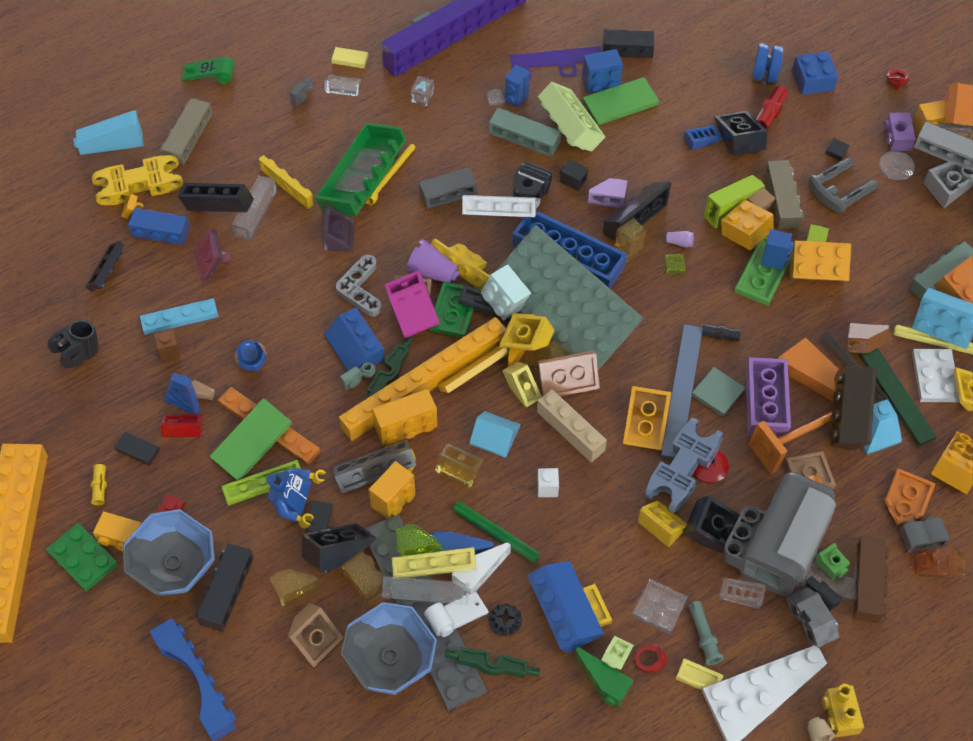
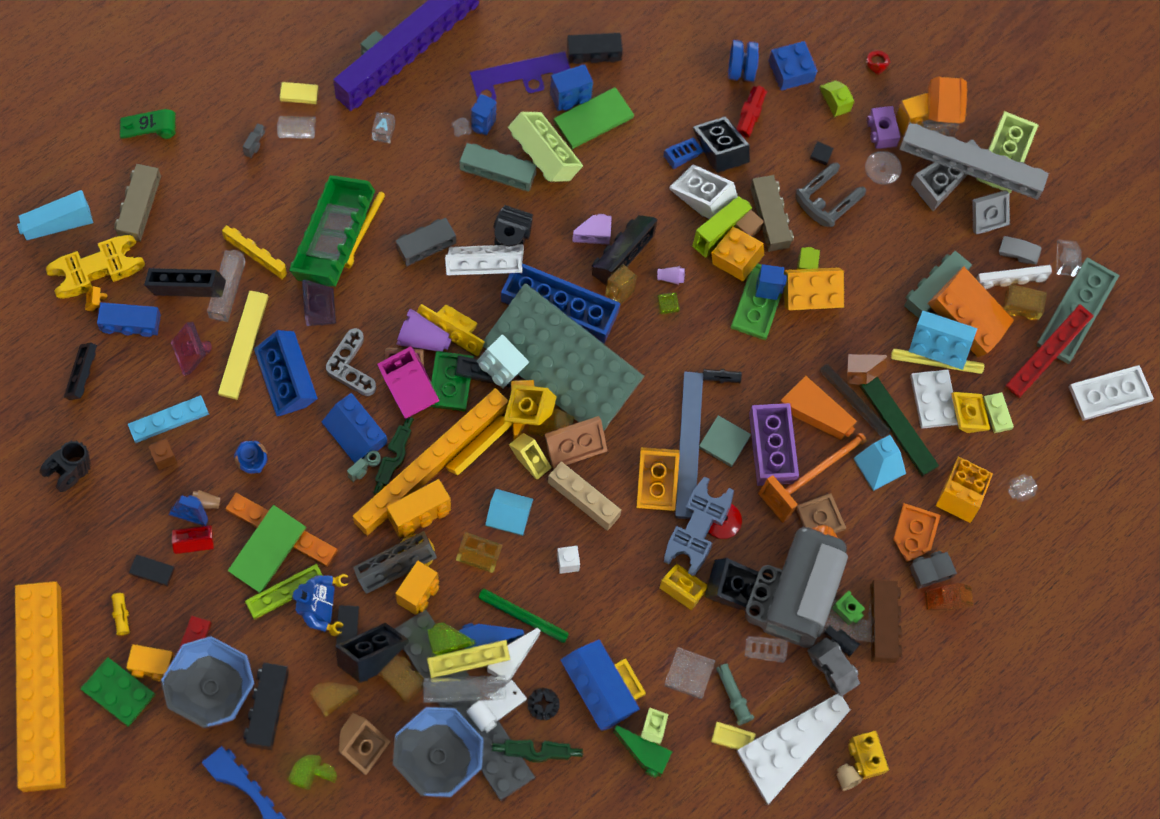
camera: 15 degrees left, 10 degrees up
(255, 652) = (306, 769): none -> clear neon green brick
(261, 260) = (243, 345): none -> light yellow tile
(296, 286) = (285, 372): none -> blue slope
(573, 175) = (554, 212): black brick -> none
(662, 658) = (690, 716): red piece -> none
(719, 168) = (704, 191): none -> white slope
(853, 407) = (857, 448): dark brown slope -> none
(857, 104) = (837, 97): none -> lime slope

